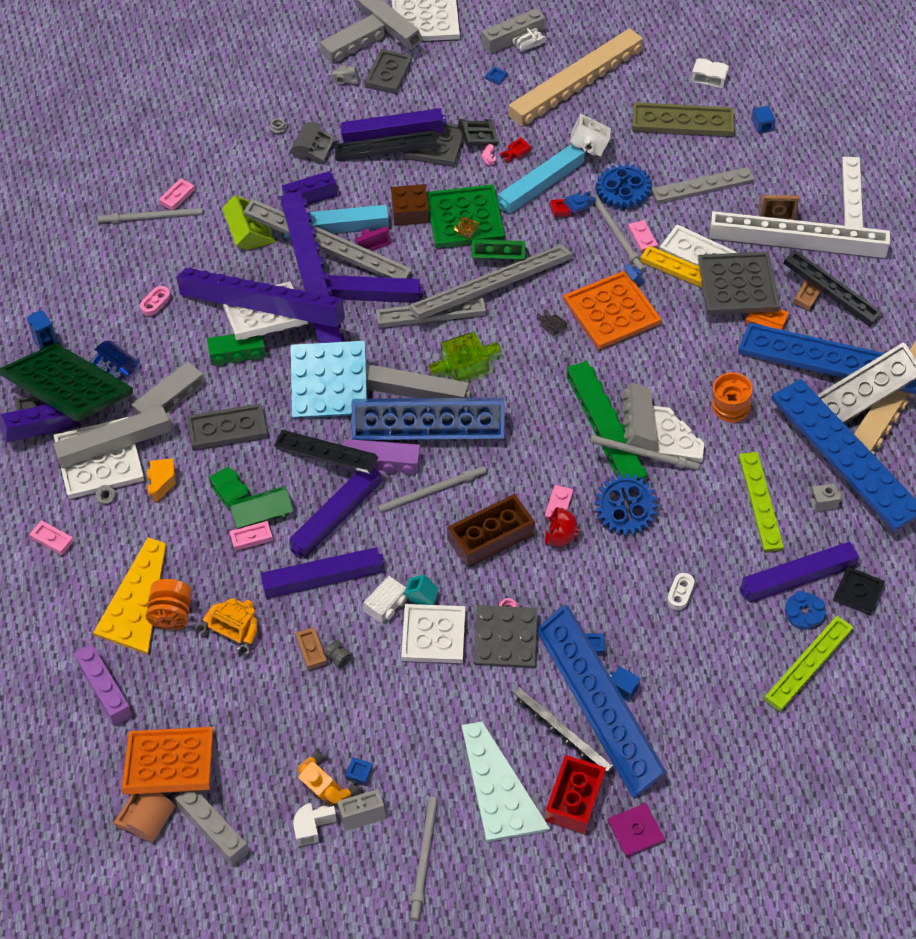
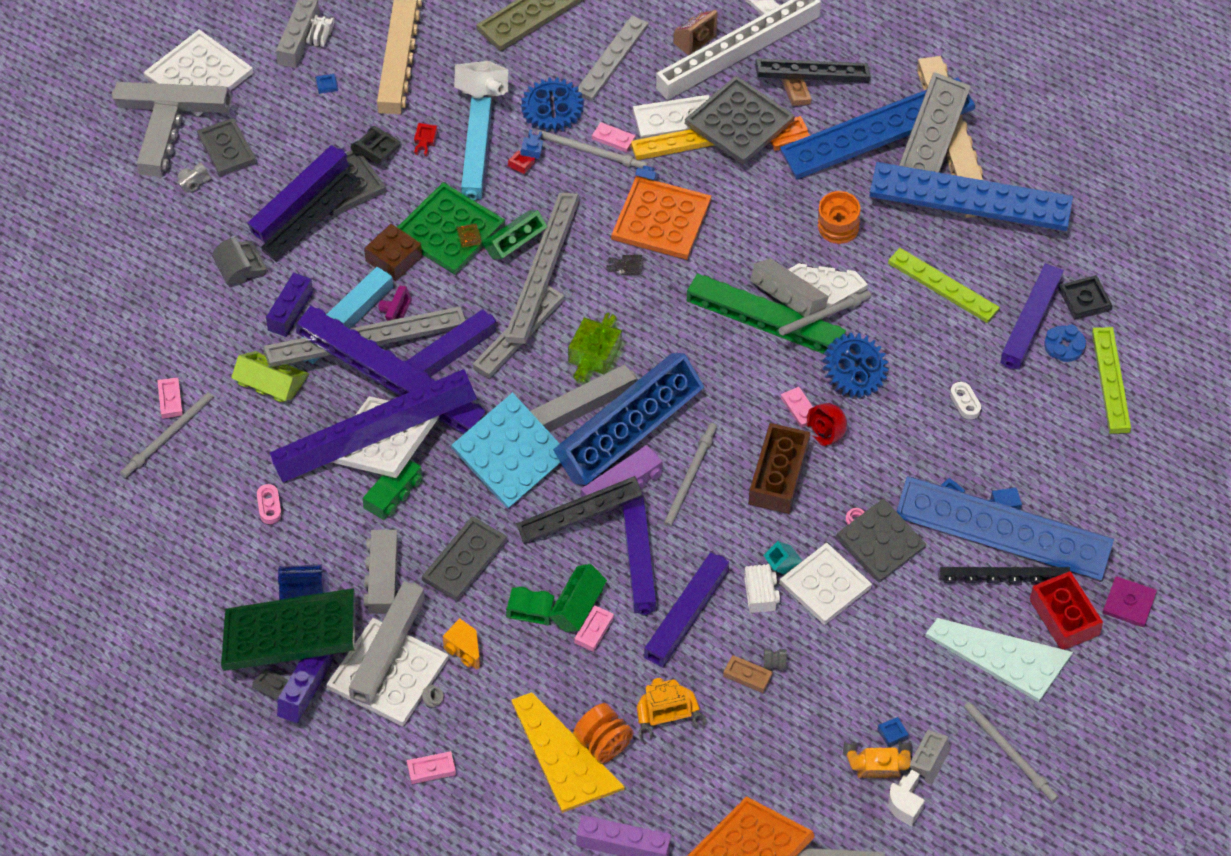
camera: 45 degrees left, 0 degrees up
(41, 329) = (207, 606): blue brick -> none
(277, 126) = (185, 264): light grey plate -> none
(487, 155) = (404, 162): bright pink arm -> none
(825, 497) = (987, 244): light grey brick -> none

